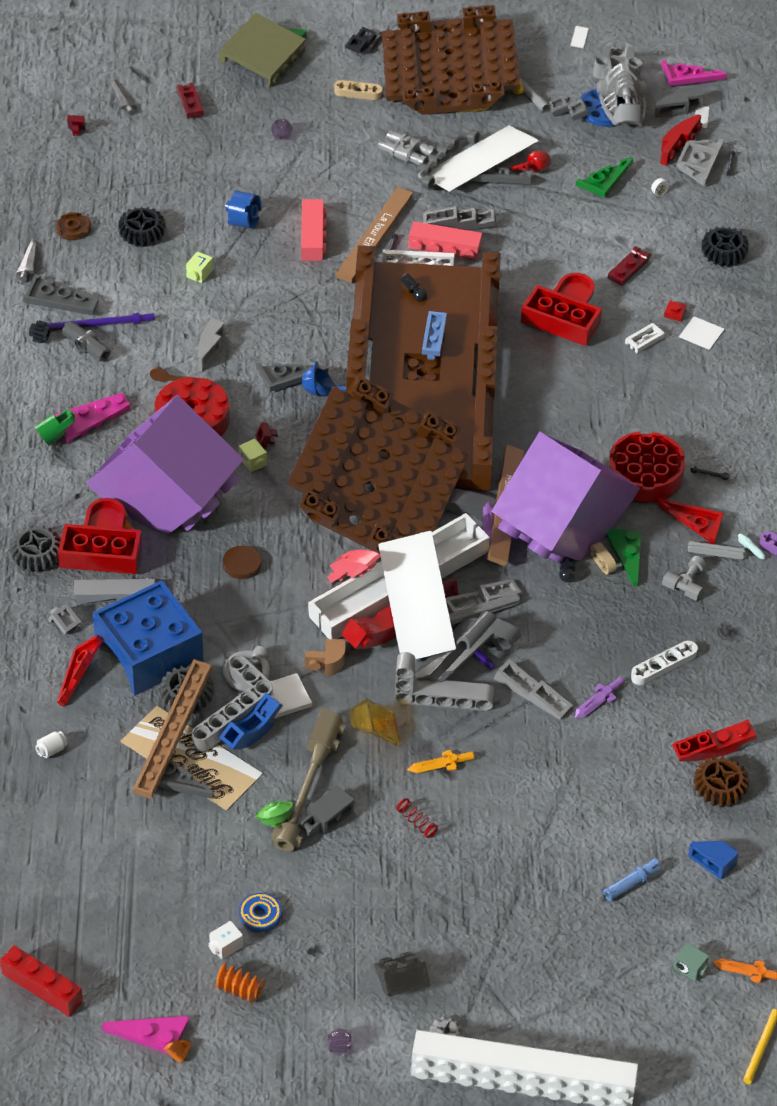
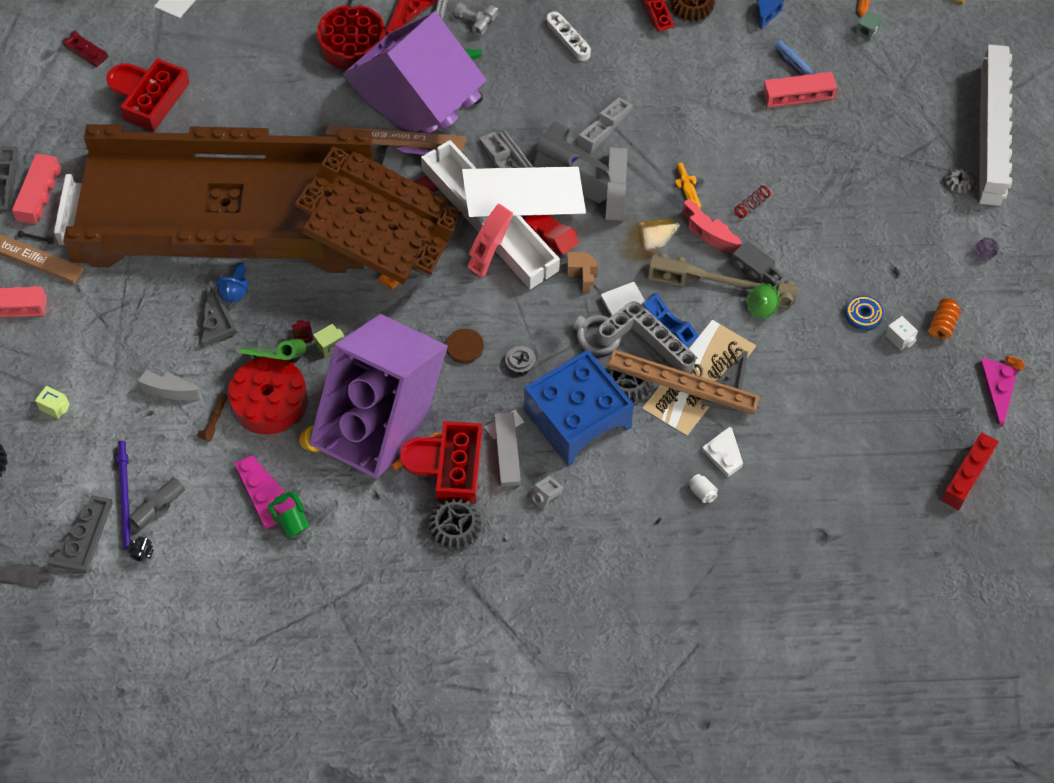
camera: 90 degrees left, 10 degrees up
(77, 667) = (604, 470): red wing -> none
(94, 769) = (724, 452): none -> white wing
(216, 600) = (515, 354): none -> light grey gear
(236, 409) = (286, 350): none -> bright green door
(383, 766) = (713, 233): none -> coral slope
(402, 974) = (913, 208): clear smoke slope -> none
(418, 293) = (118, 202): black axle -> none
(434, 334) = (189, 181): medium blue plate -> none
(584, 878) = (799, 89): none -> coral brick
(598, 698) = (609, 80): medium lavender sword -> none
(647, 339) = (184, 51): white tile -> none
(675, 310) = (148, 17): red plate -> none

